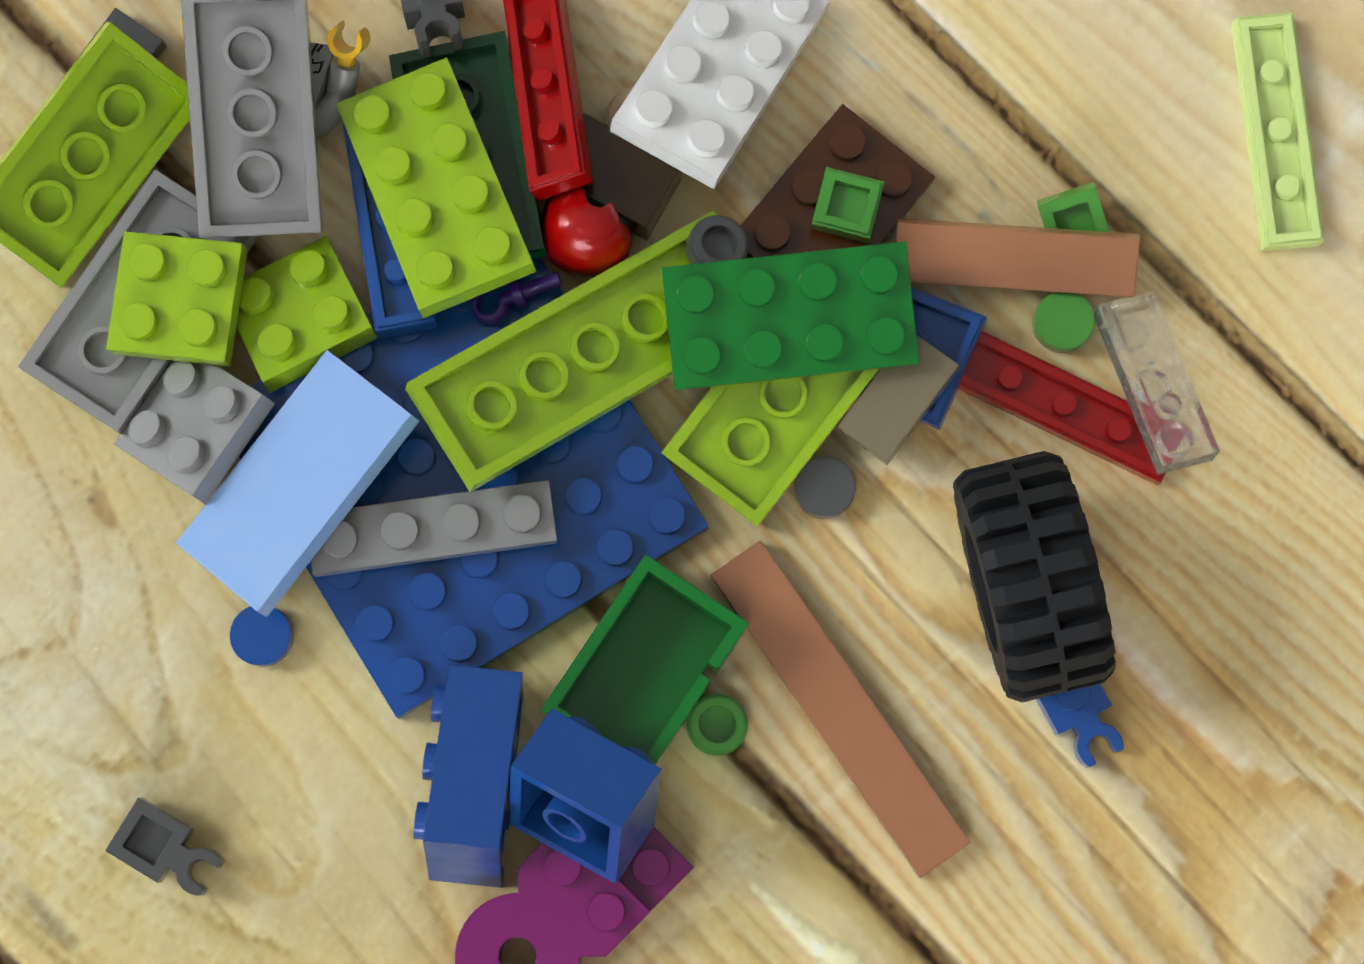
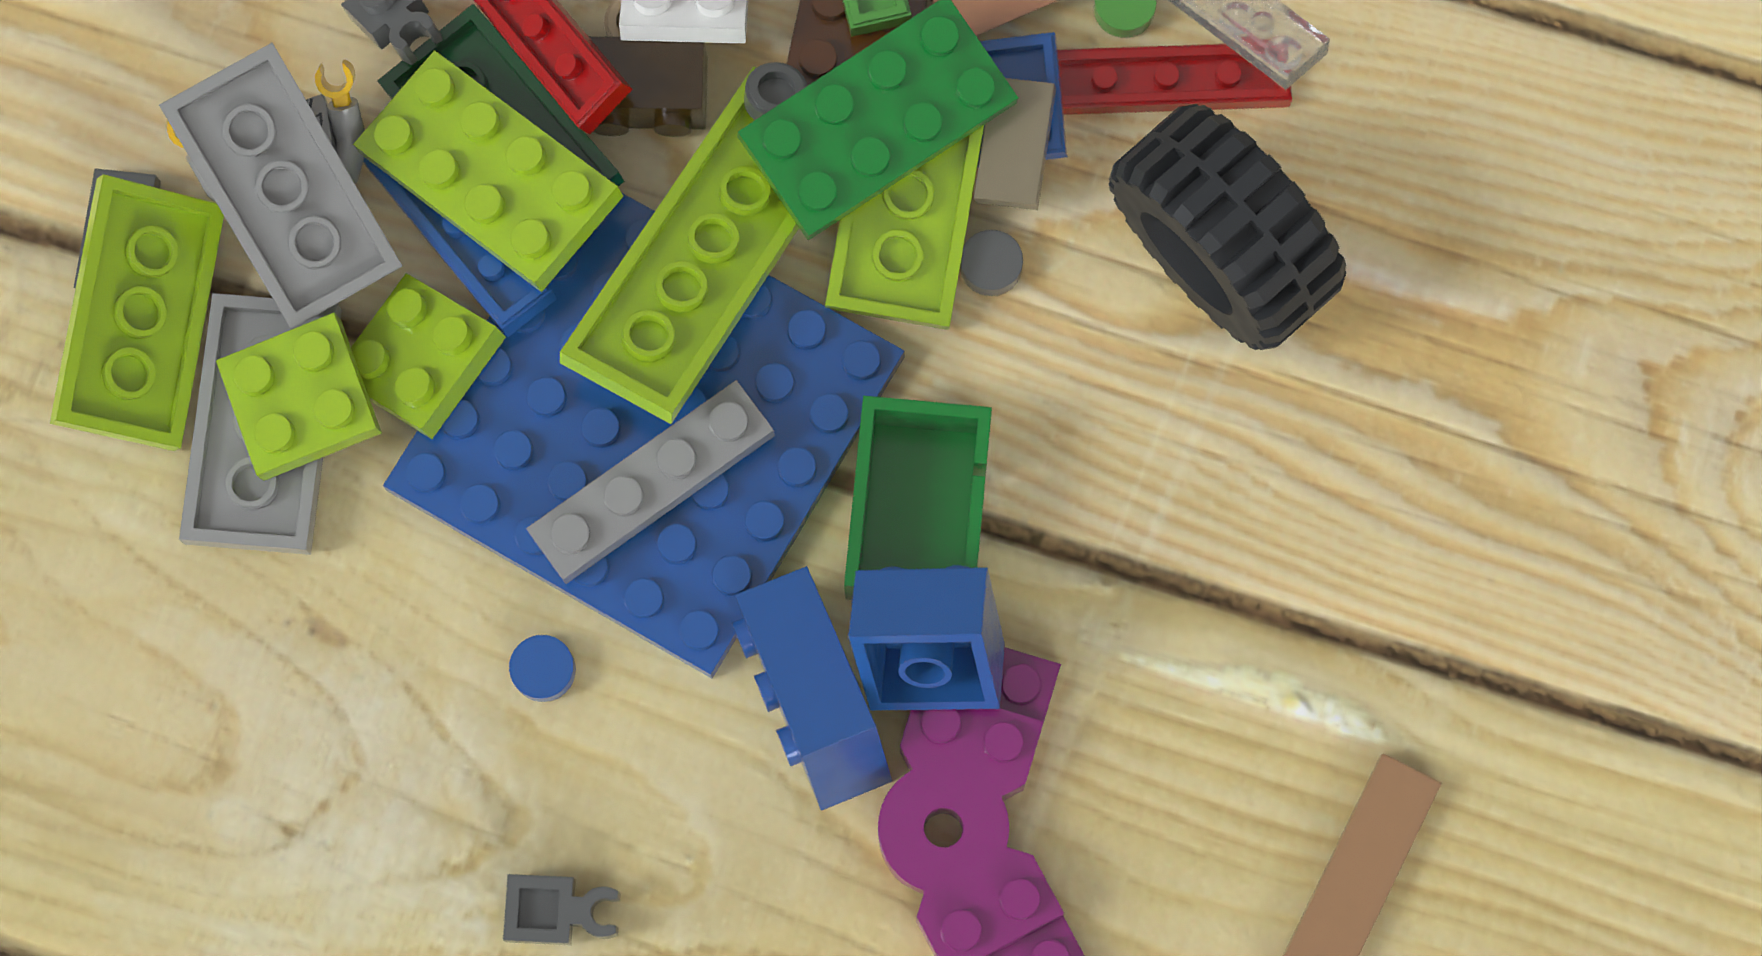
camera: 25 degrees left, 5 degrees down
(194, 426) = (376, 506): light grey plate -> none
(297, 483) = (503, 502): light blue tile -> none
(516, 295) = (615, 230): dark purple hand -> none
(583, 236) = (647, 145): red hair -> none
(717, 724) = (1010, 526): bright green tile -> none
(840, 709) = (1118, 454): nougat tile -> none
(1079, 711) = (1328, 339): blue plate -> none

